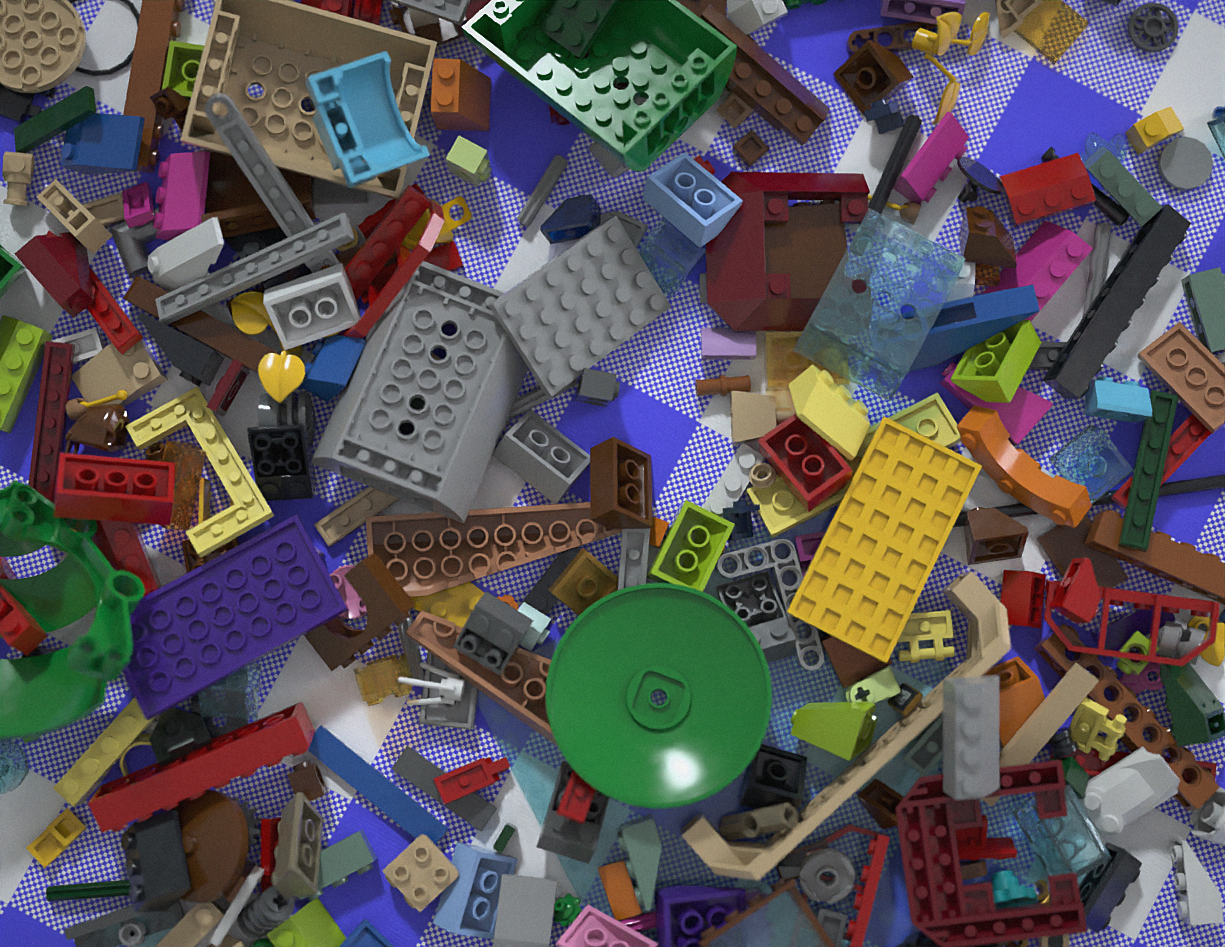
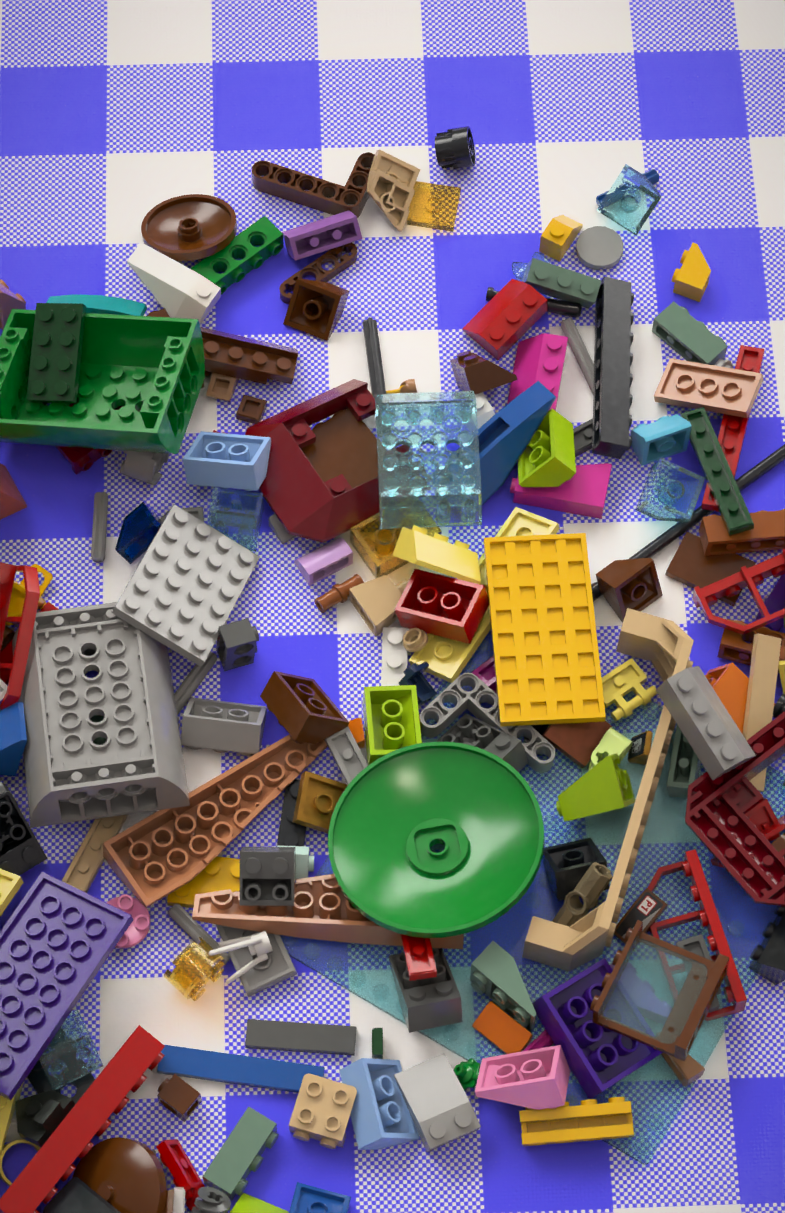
camera: 30 degrees left, 20 degrees down
(298, 848) = (202, 1145): dark tan slope -> none
(385, 605) = (164, 898): reddish brown arch -> none
(469, 161) = (26, 531): yellowish green brick -> none
(469, 779) = (318, 1012): red hinge -> none
(822, 861) = (680, 908): light grey tile -> none
(881, 803) = (673, 837): reddish brown slope -> none
(886, 116) = (344, 329): dark blue bracket -> none
(933, 161) = (402, 341): dark pink slope -> none
(939, 43) = (350, 257): yellow plant -> none
(979, 177) = (446, 334): shield -> none
(987, 275) = (498, 399): clear orange tile -> none
(1018, 472) = (618, 529): orange brick -> none
(1023, 597) = (685, 614): red brick -> none
(1078, 592) = (721, 582): red slope -> none
(1153, 27) = (511, 167): dark grey wheel -> none

